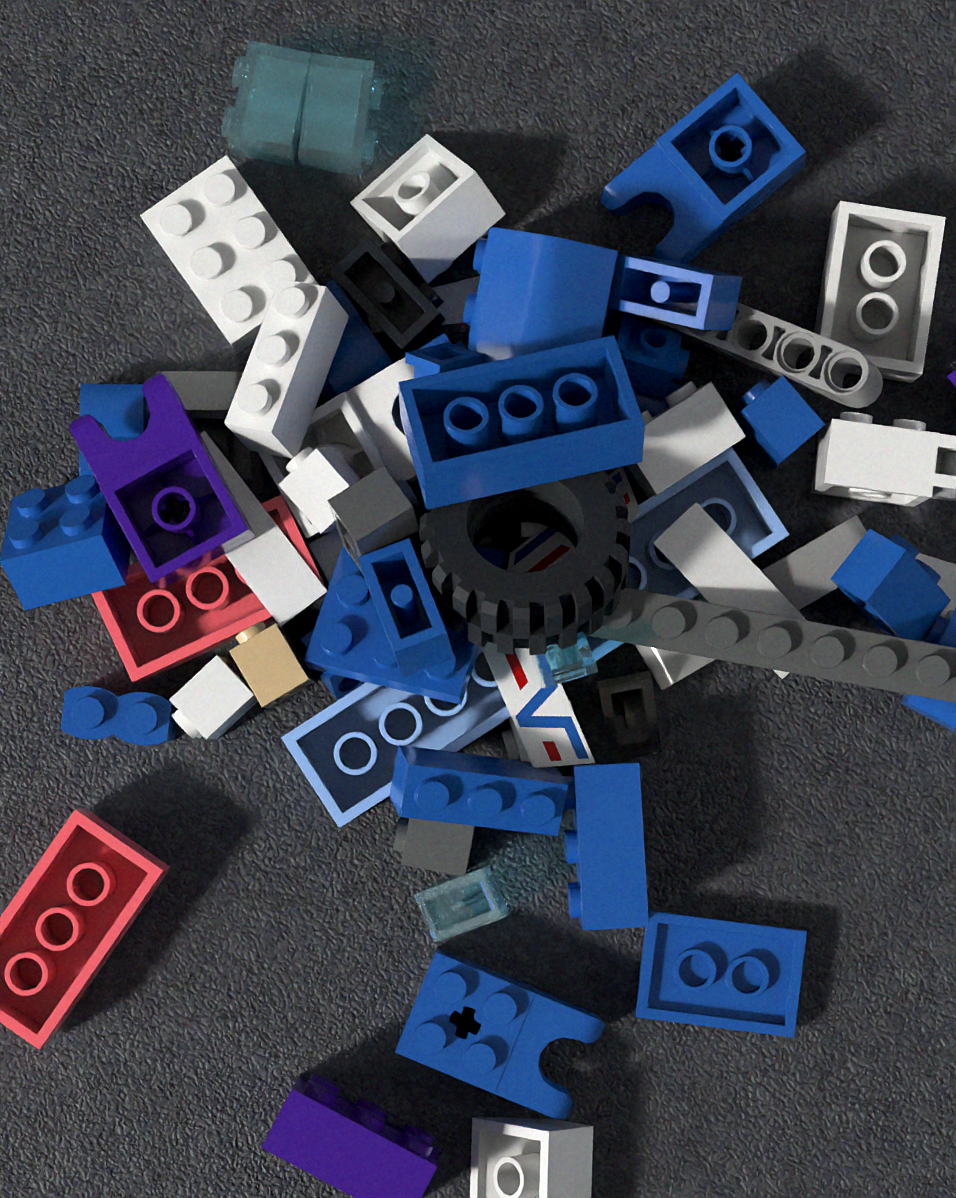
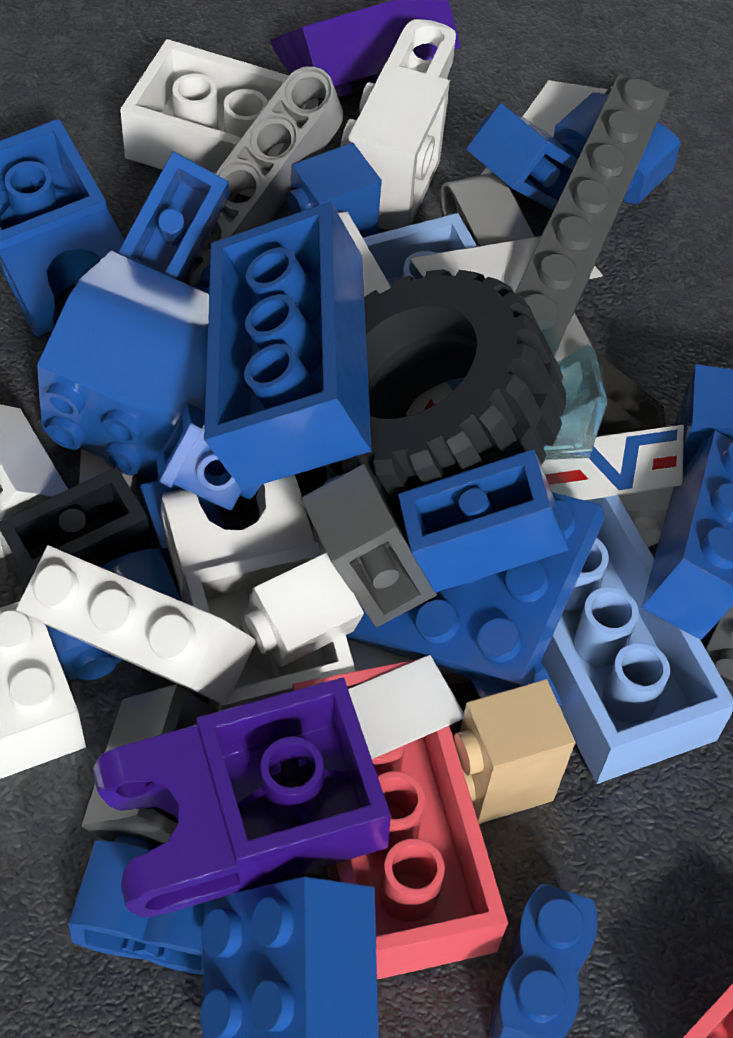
camera: 85 degrees left, 30 degrees down
(213, 700) = (544, 827): white brick -> none

